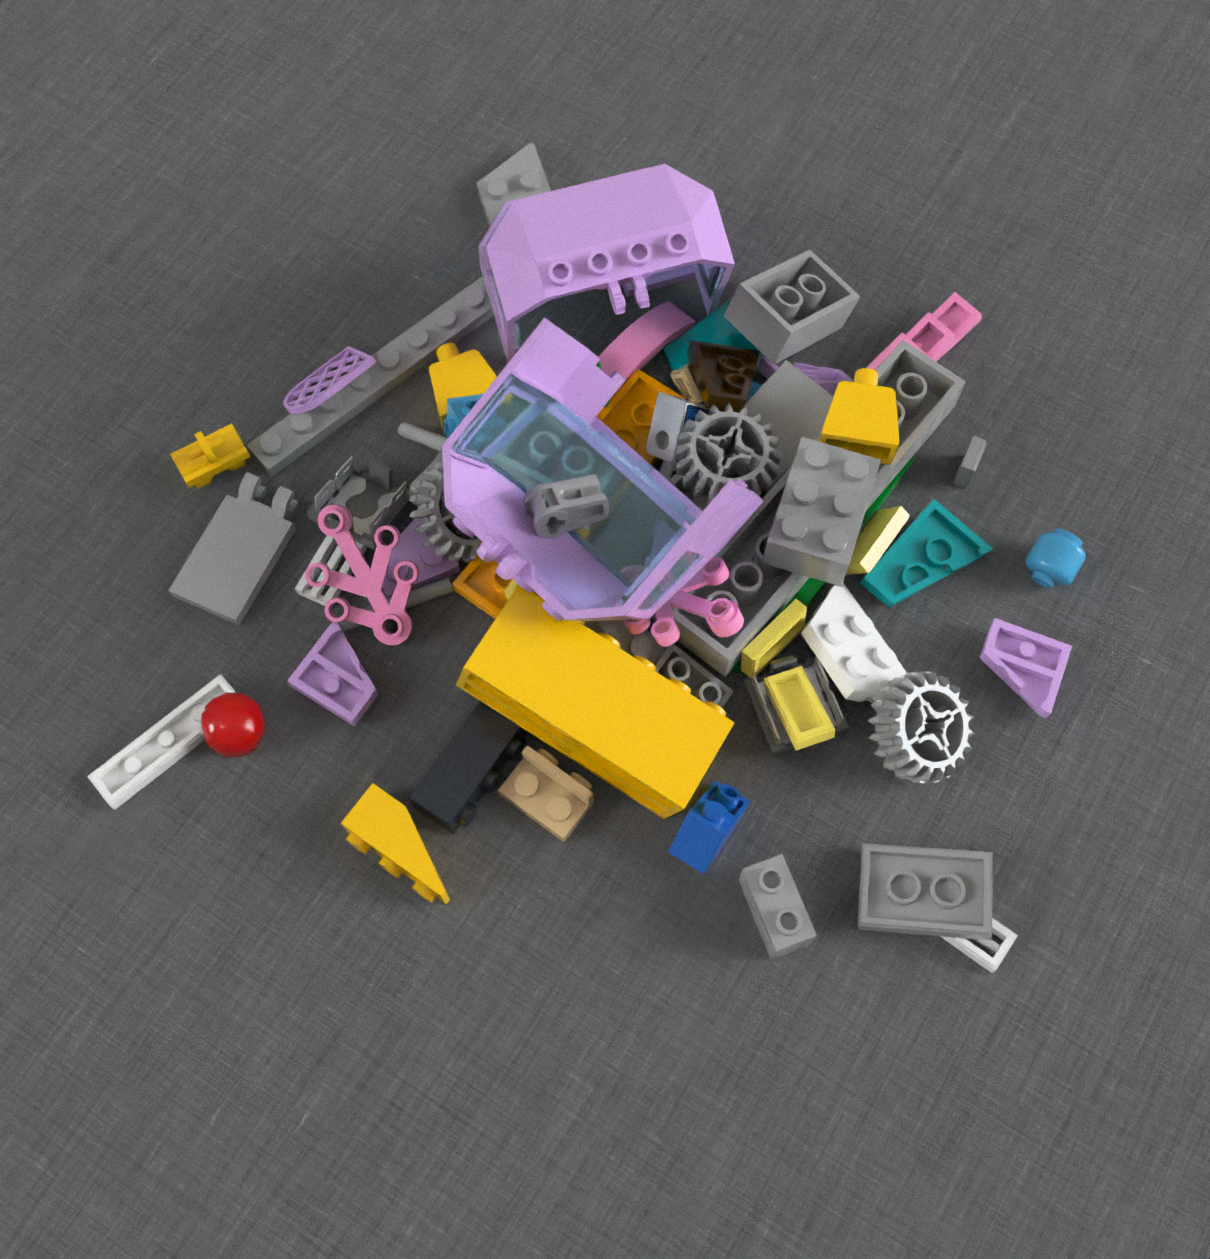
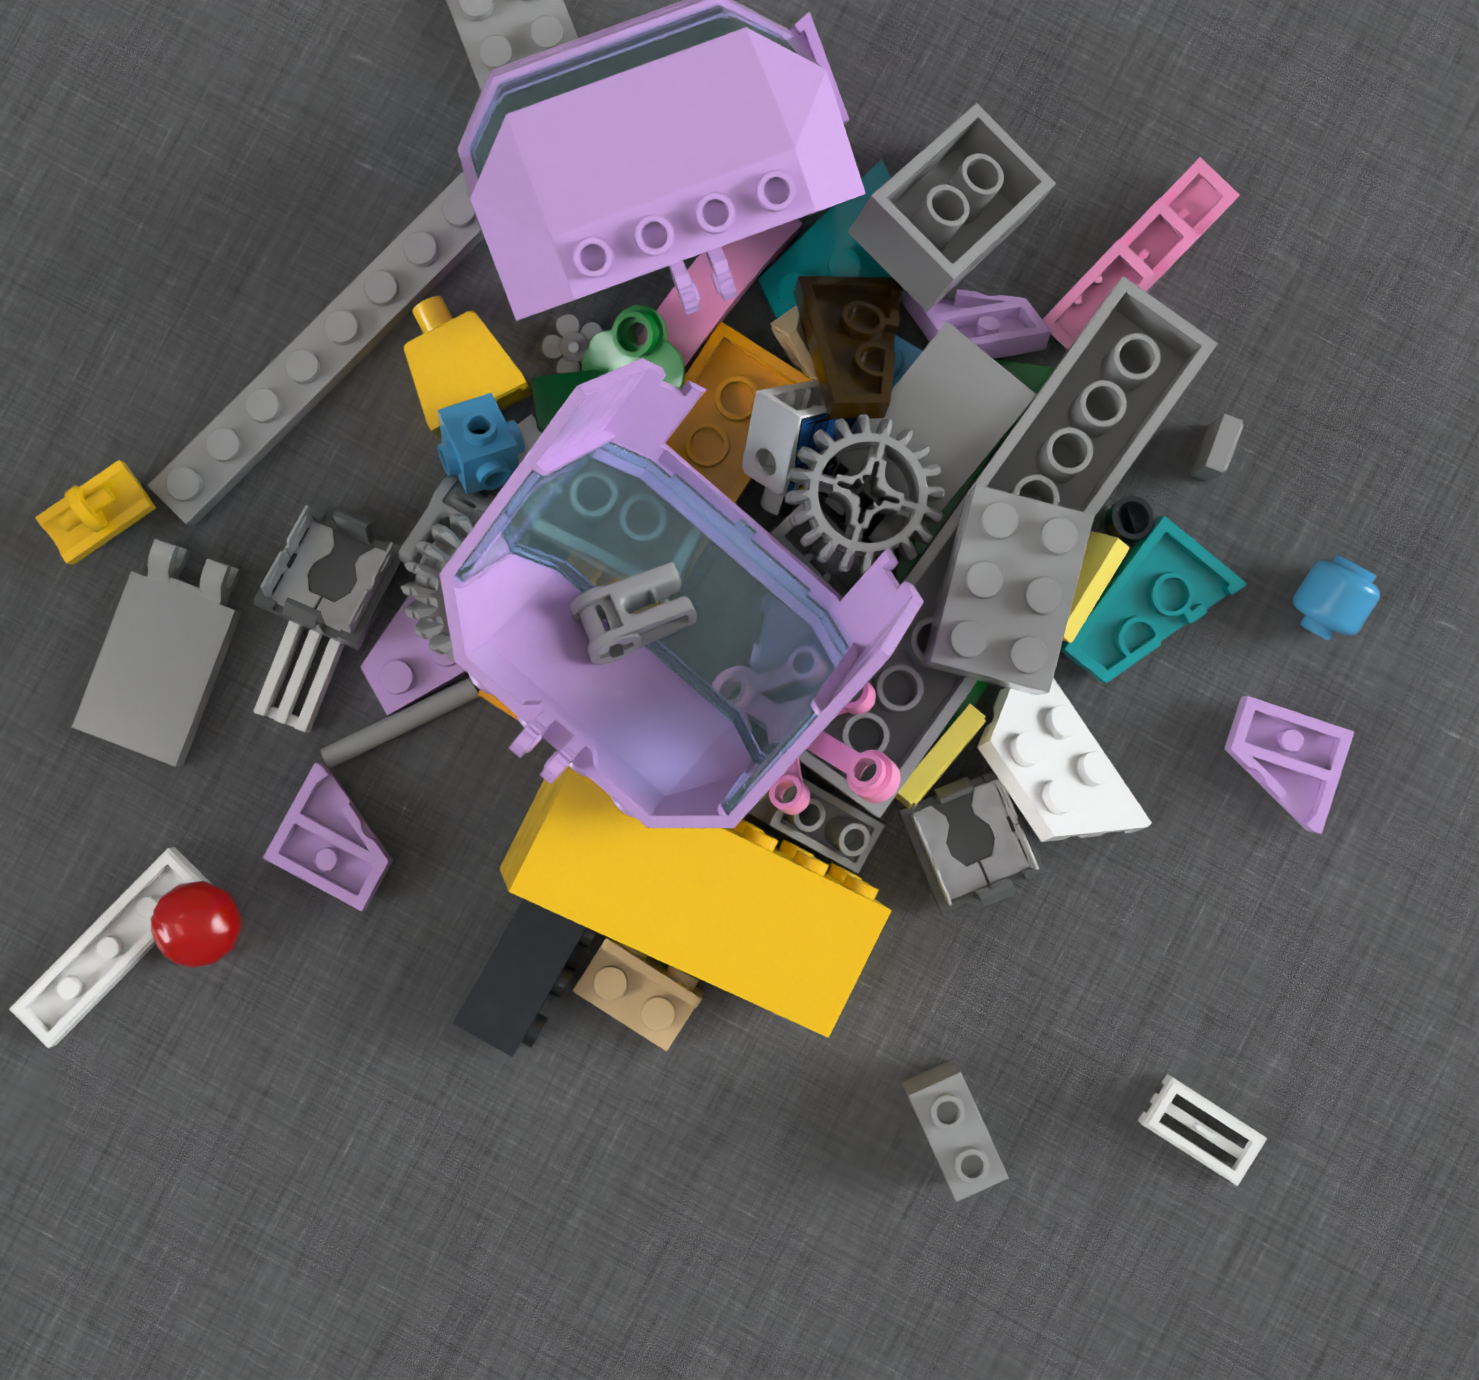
camera: 10 degrees left, 20 degrees up
(335, 384) = (264, 390): lavender window -> none
(367, 580) = (350, 706): bright pink plant -> none
(388, 829) = (440, 1068): yellow slope -> none
(421, 436) = (428, 474): light grey bar -> none
(708, 826) = (864, 1026): blue slope -> none
(799, 708) = (977, 861): light yellow tile -> none
(863, 418) = (1063, 431): yellow torso -> none
(914, 501) = (1136, 519): none -> black hinge
(926, 891) = (1149, 1093): light grey tile -> none
(932, 727) = (1145, 873): light grey gear -> none

